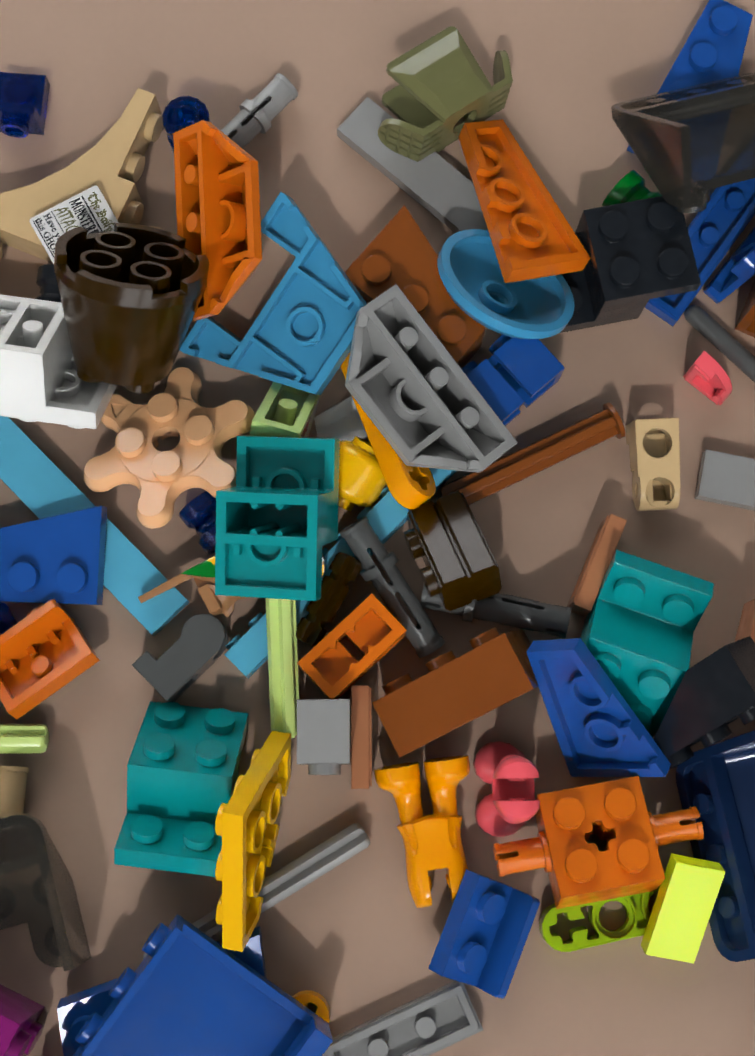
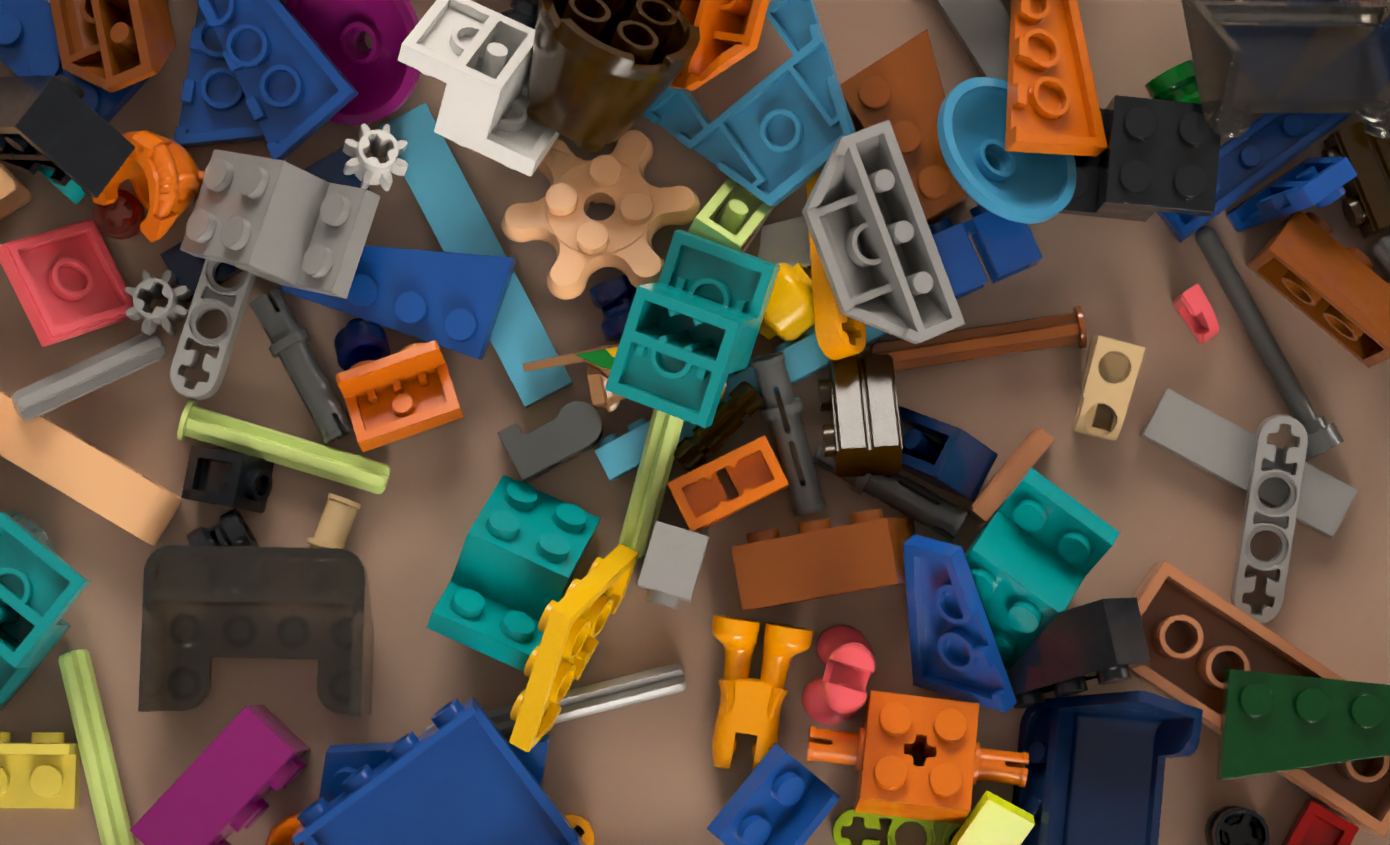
camera: 20 degrees right, 5 degrees up
(361, 737) = (709, 578): nougat tile -> none
(535, 564) = (944, 454): none -> dark blue slope

